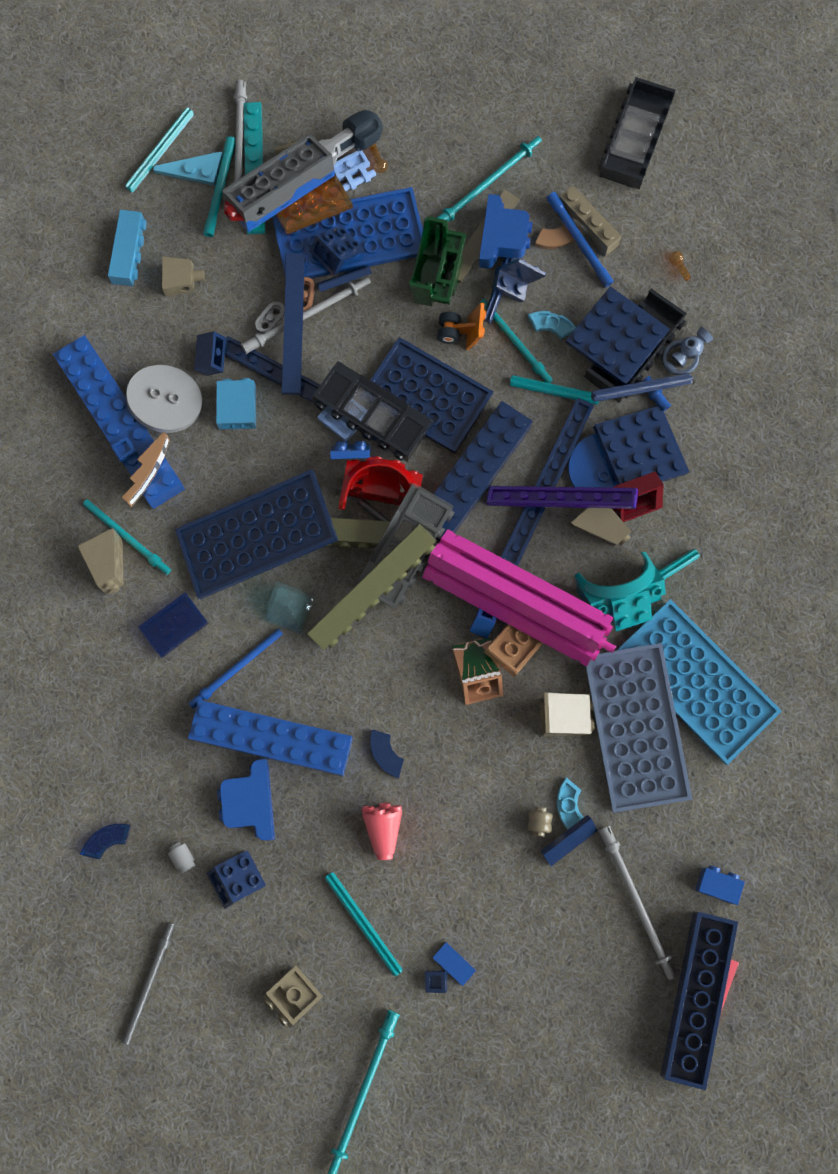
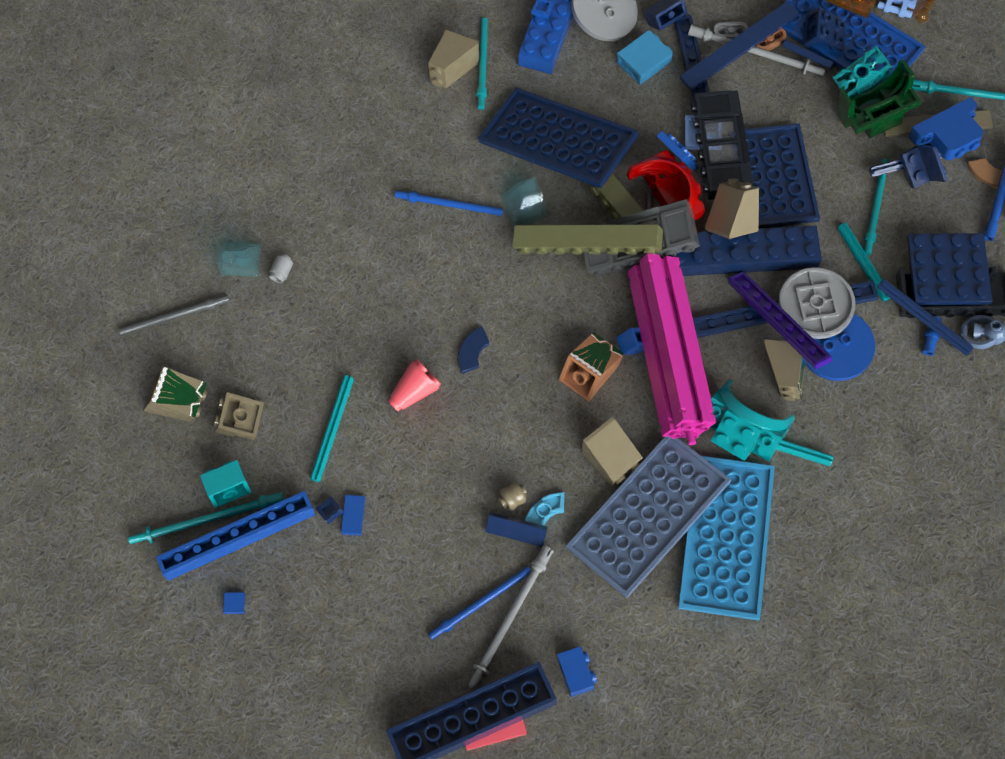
camera: 55 degrees right, 10 degrees down
(104, 839) = (253, 211): clear blue tile -> none
(141, 884) = (239, 259): none -> clear light blue slope
(150, 463) = (538, 32): medium nougat slope -> none
(173, 625) = (445, 139): clear blue plate -> none
(230, 1039) = (176, 395): none -> slope
(235, 879) = (295, 315): dark blue bracket -> none
(249, 801) = (359, 282): blue brick -> none
(270, 738) = (417, 263): blue brick -> none
(348, 1055) = (225, 483): none -> teal brick
(389, 253) = (872, 76): none -> teal piece
(400, 1081) = (235, 536): none -> blue brick
(443, 453) = (734, 209): none -> dark tan slope
(452, 328) = (844, 154): orange plate -> none
(455, 1122) = (234, 603): none -> blue tile
(512, 649) = (628, 374): medium nougat tile -> none
(551, 322) = (915, 218): medium azure tile -> none
(565, 454) = (818, 301): none -> light grey plate
(605, 957) = (447, 625): none -> blue bar
(641, 445) = (875, 357): dark blue plate -> none
(645, 504) = (829, 390): dark red window -> none

